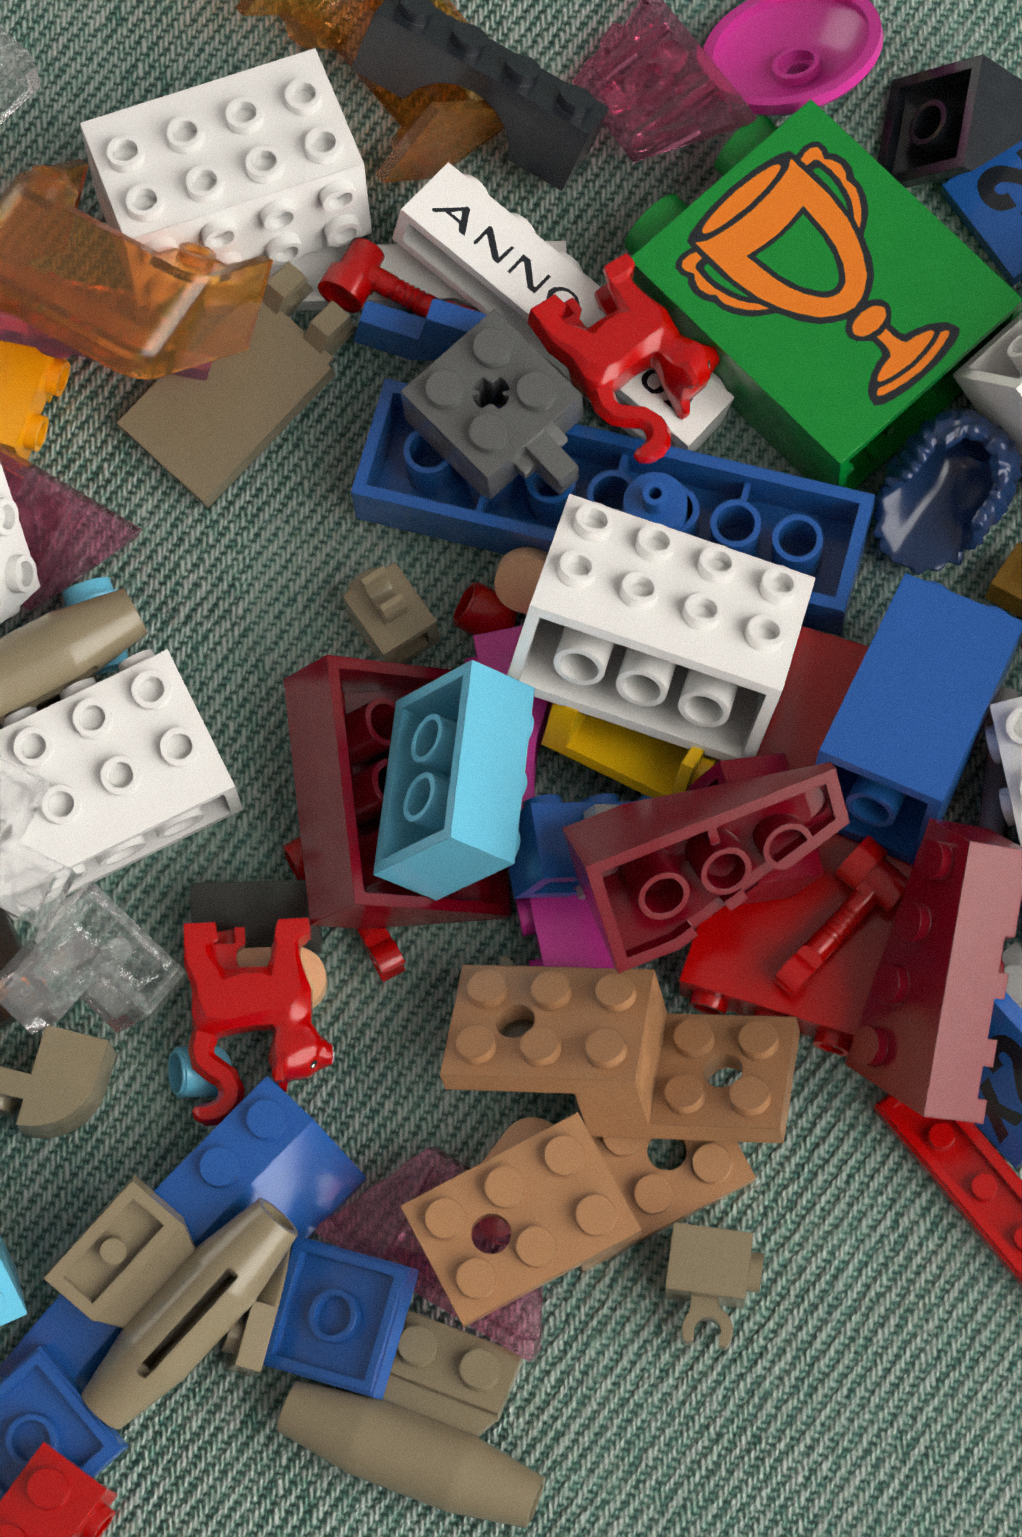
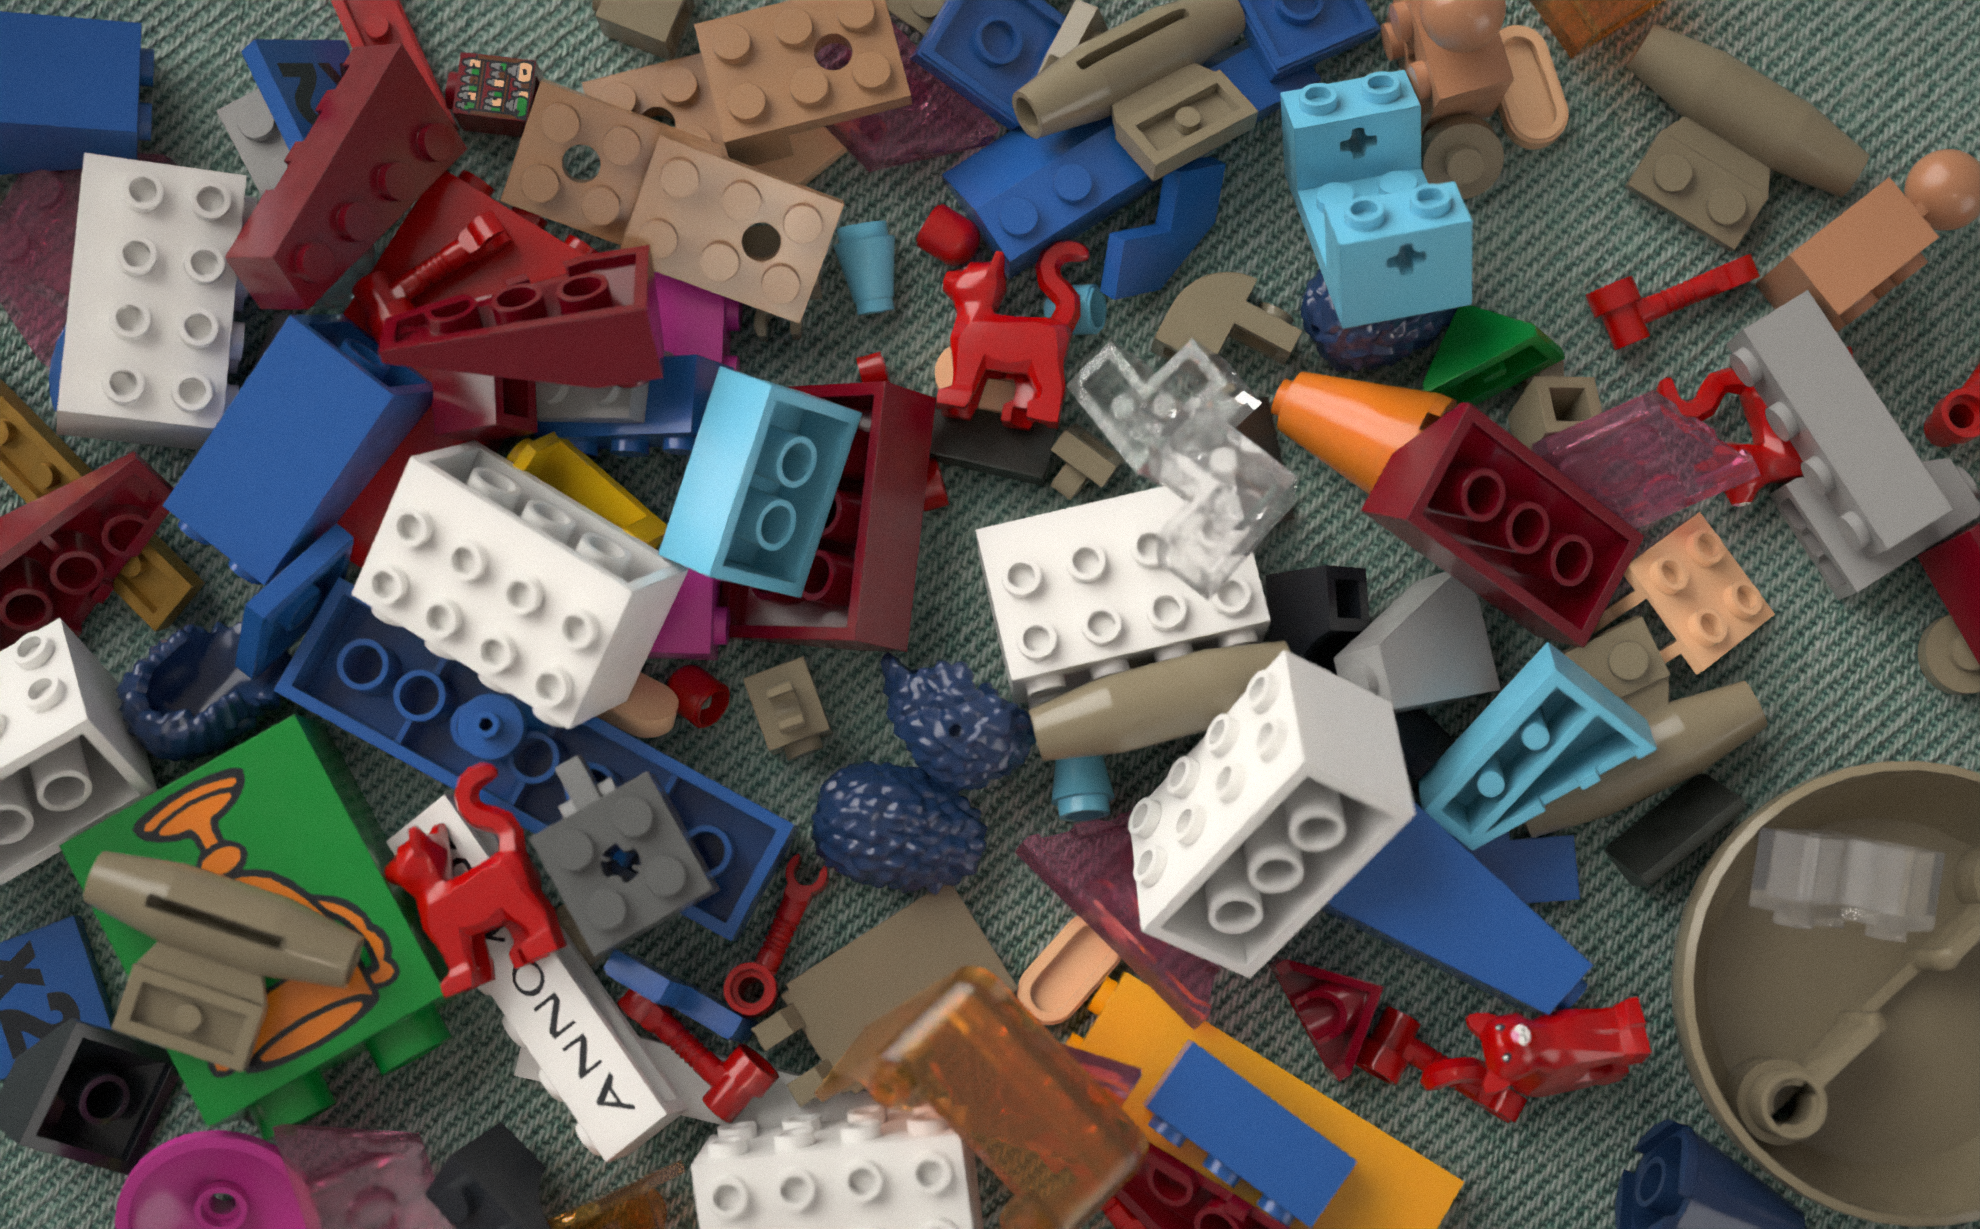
camera: 175 degrees left, 10 degrees up
(80, 444) = (1066, 973): none -> light nougat tile
(132, 1137) = (1148, 255): none -> blue tile
(159, 912) = (1085, 460): none -> dark tan tile
(221, 626) = (952, 727): none -> dark blue piece
(260, 528) = (896, 828): none -> dark blue piece
(341, 1109) = (949, 236): none -> red piece
(353, 343) = (770, 955): none -> red brick
(414, 1060) = (867, 263): none -> medium azure cone
(838, 1139) = (492, 93): none -> brick
(844, 231) = (215, 945): none -> dark tan plate
(879, 579) = (291, 602): none -> blue tile

